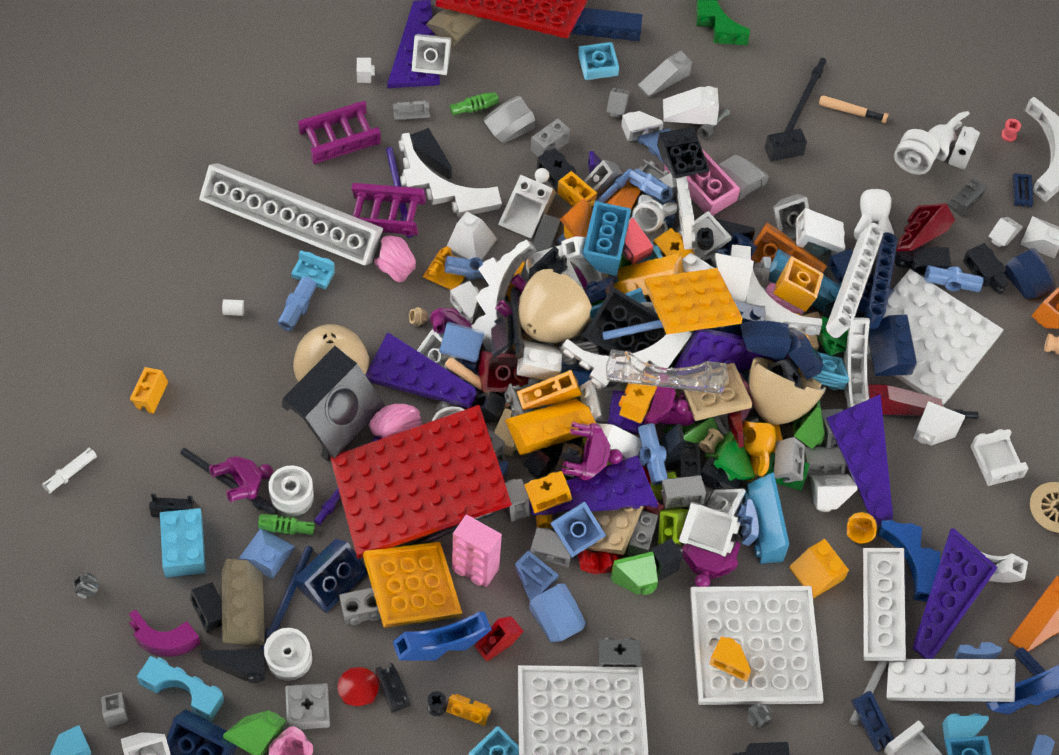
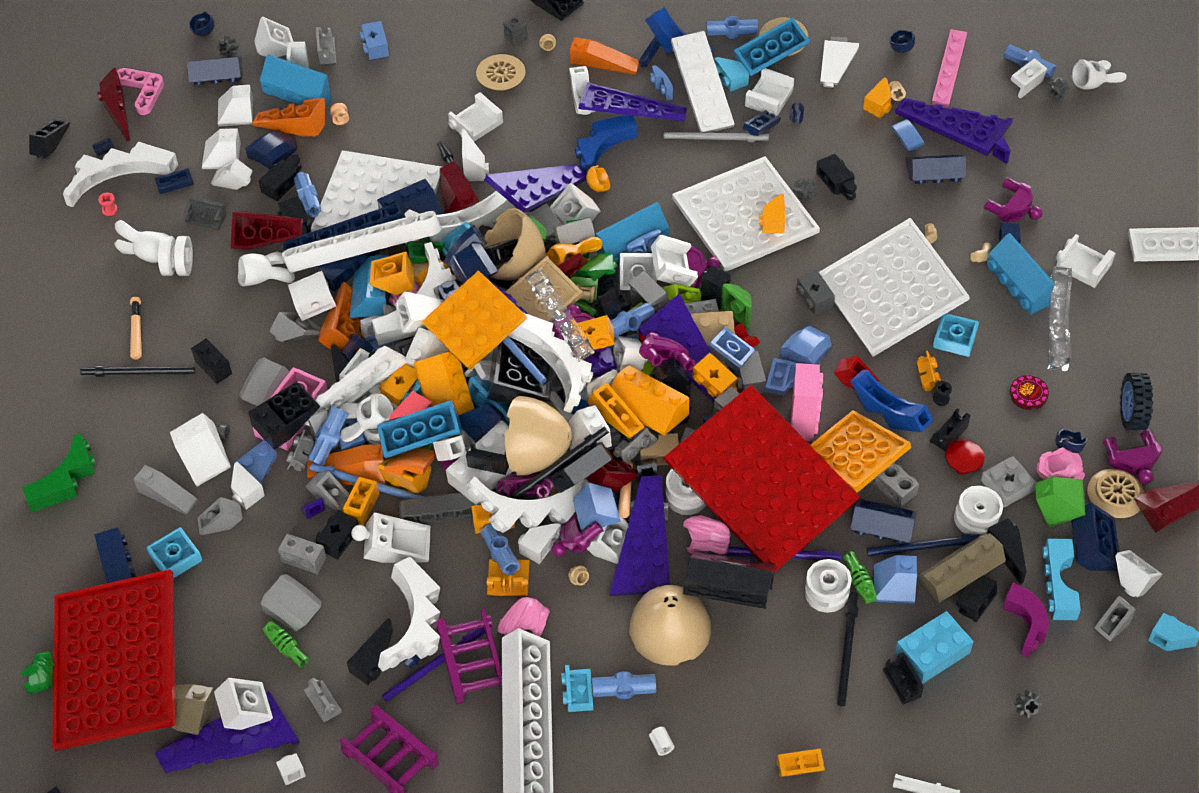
camera: 110 degrees left, 5 degrees down
(245, 474) = (836, 628): magenta connector -> none
(471, 237) = (462, 573): white slope -> none
(819, 568) = (651, 189): light orange slope -> none
(884, 604) = (658, 145): white plate -> none
(966, 141) = (149, 221): white torso -> none

